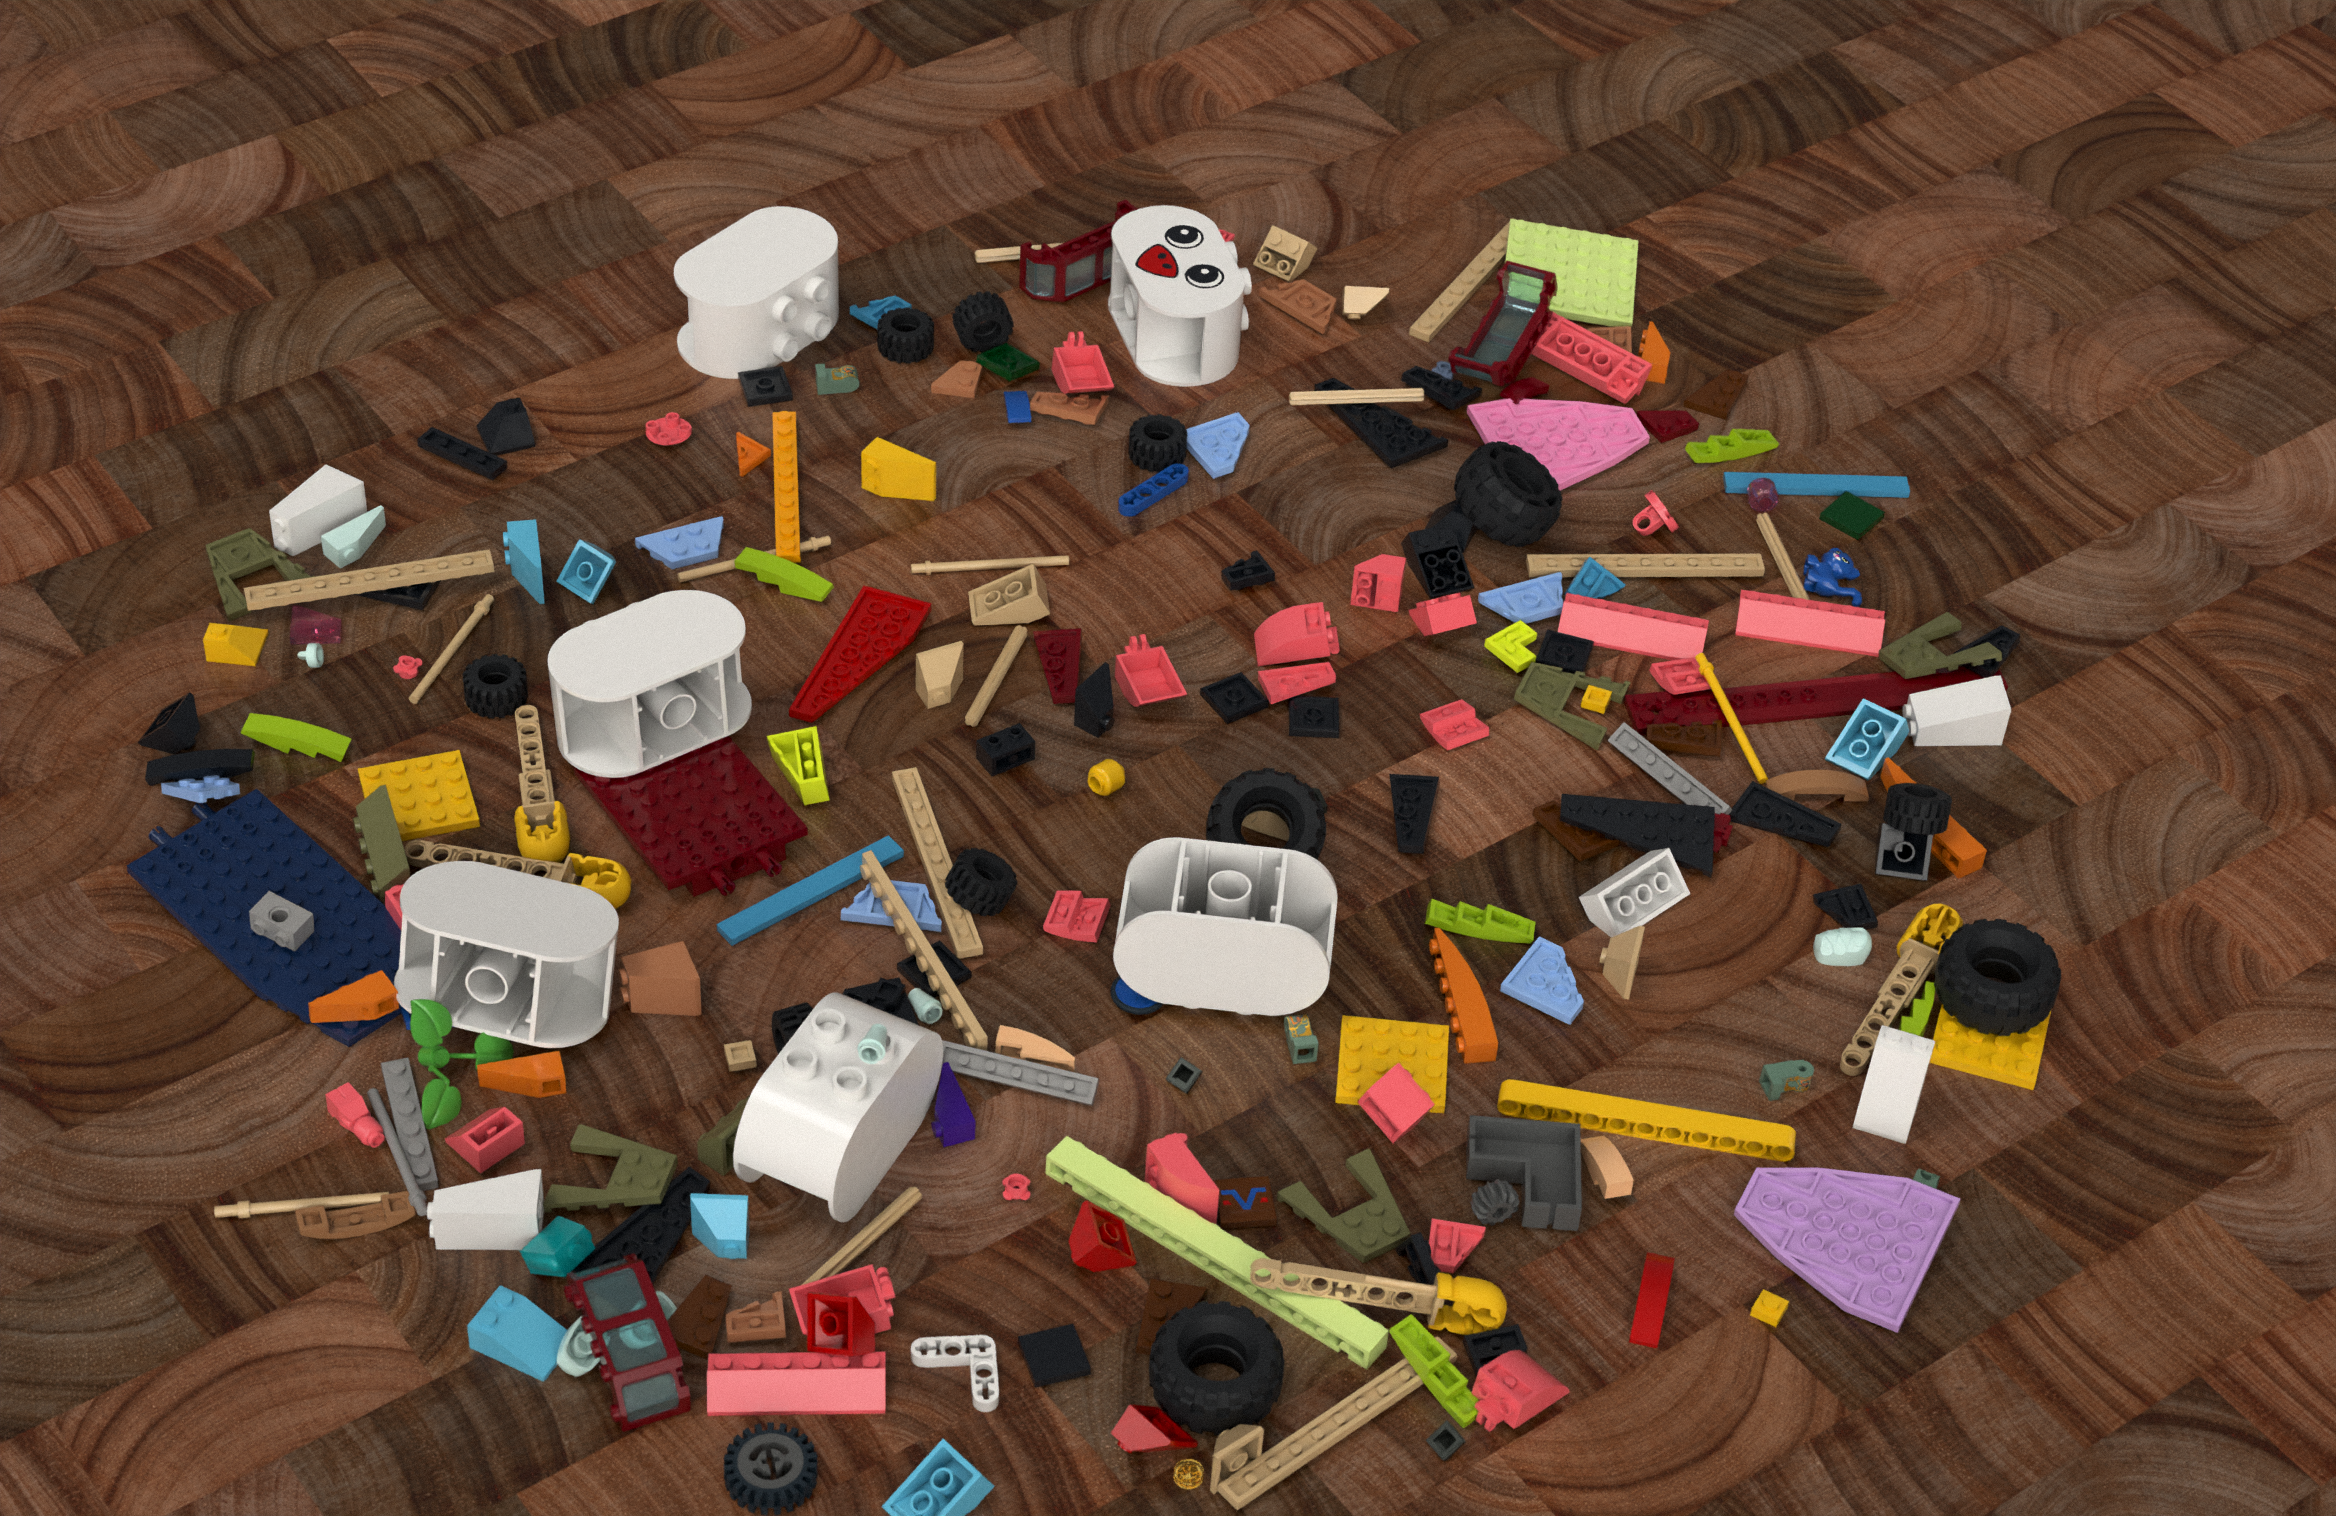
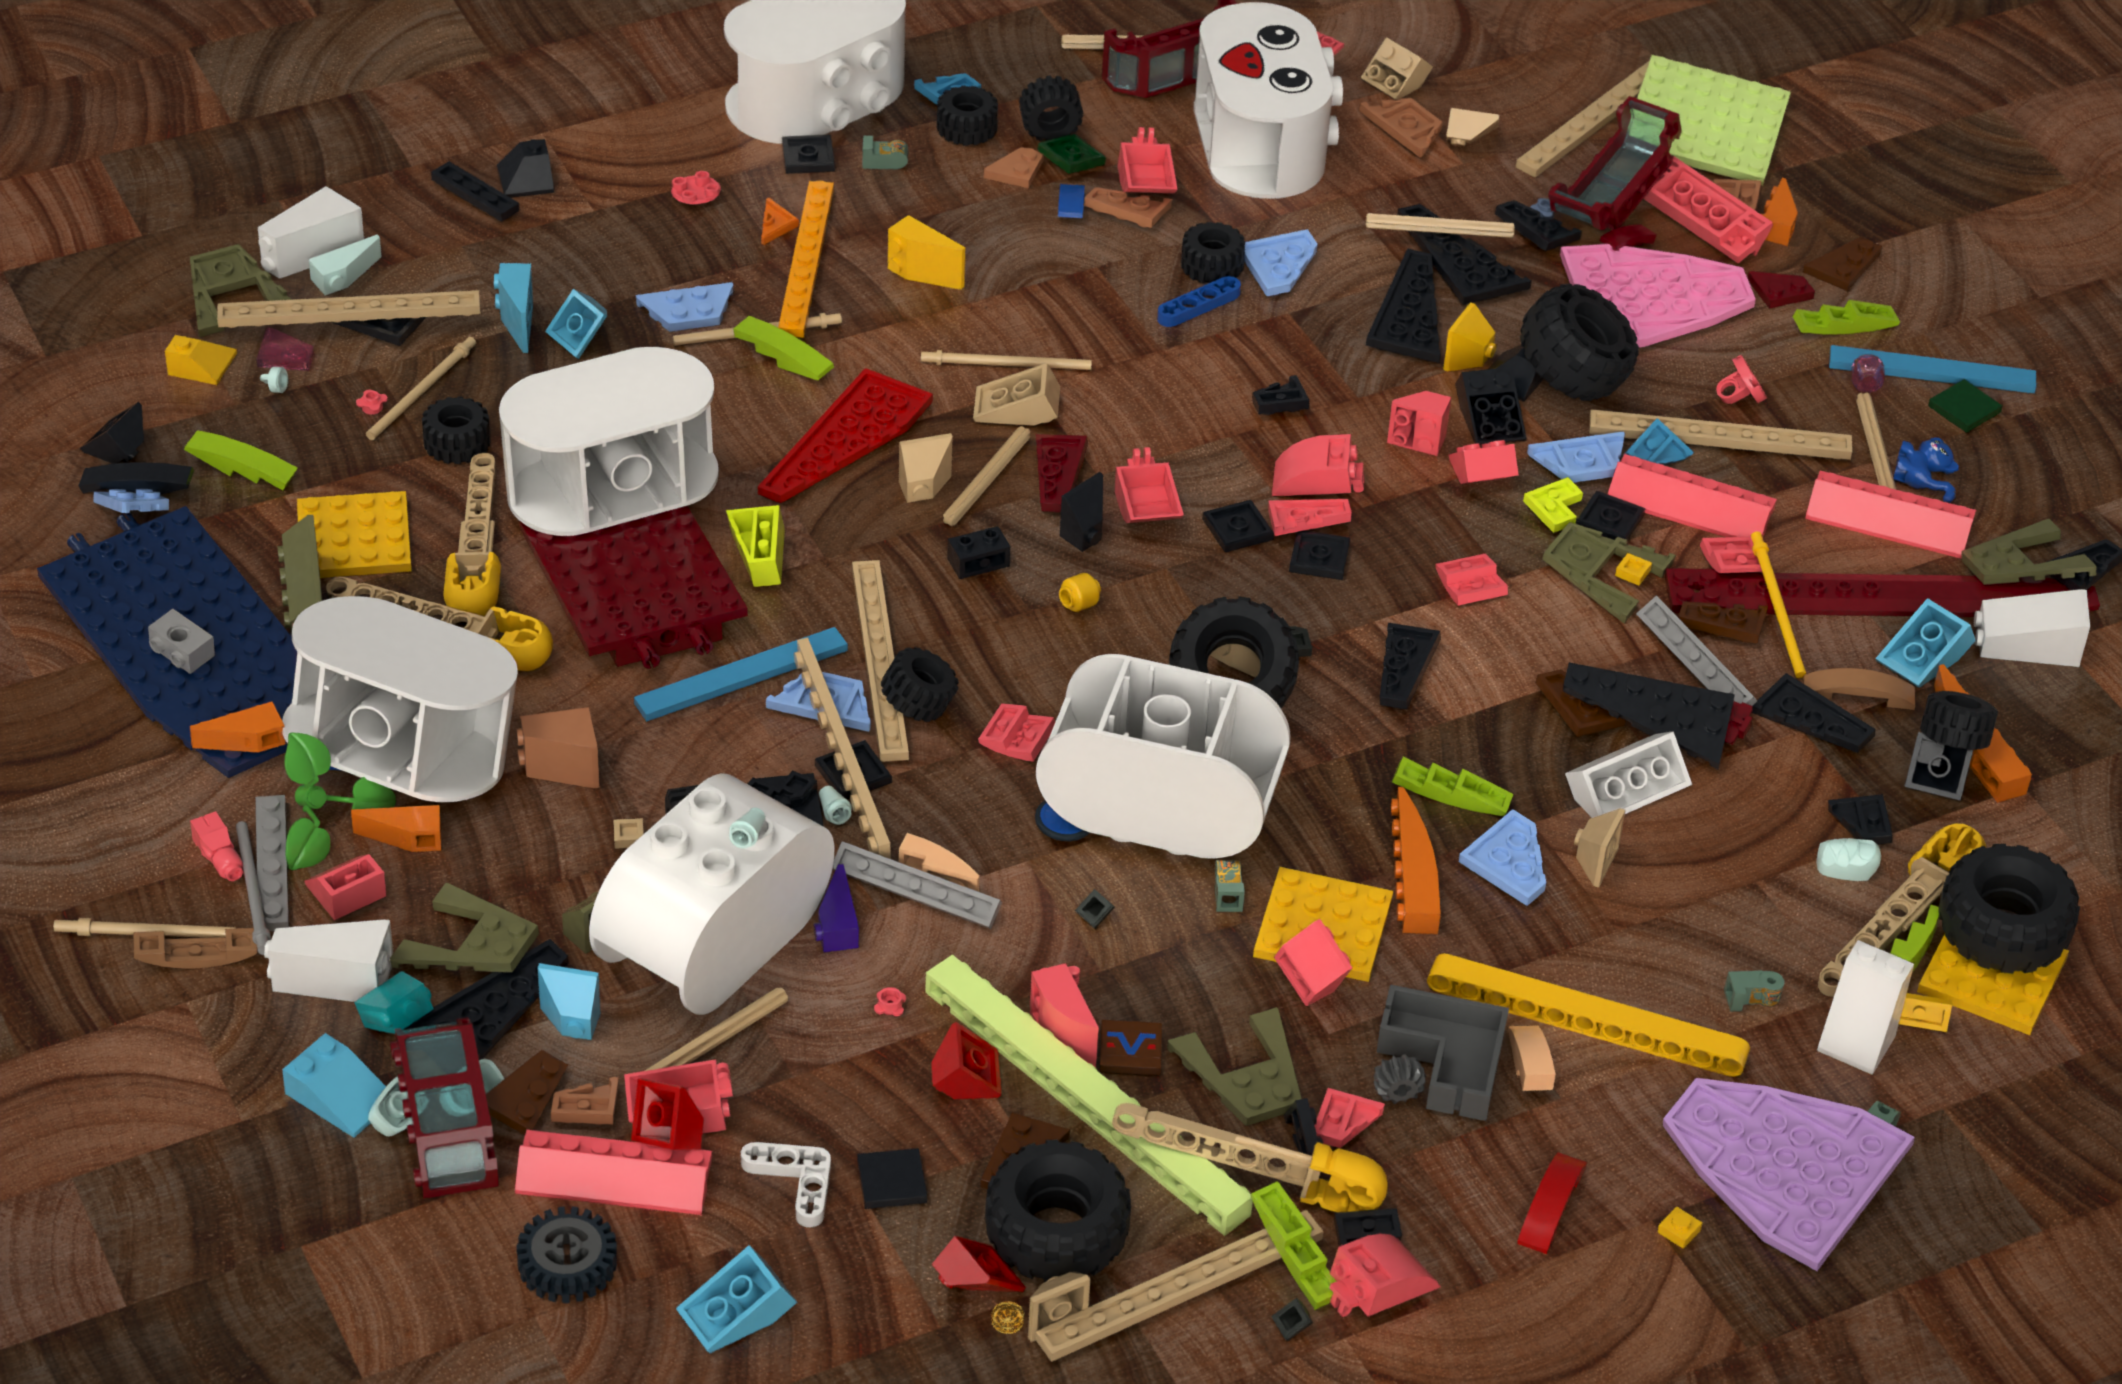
camera: 10 degrees right, 0 degrees up
(1344, 480) = (1409, 311): none -> black wing
(1407, 502) = (1469, 341): none -> yellow slope
(1944, 1081) = (1926, 1012): none -> yellow tile

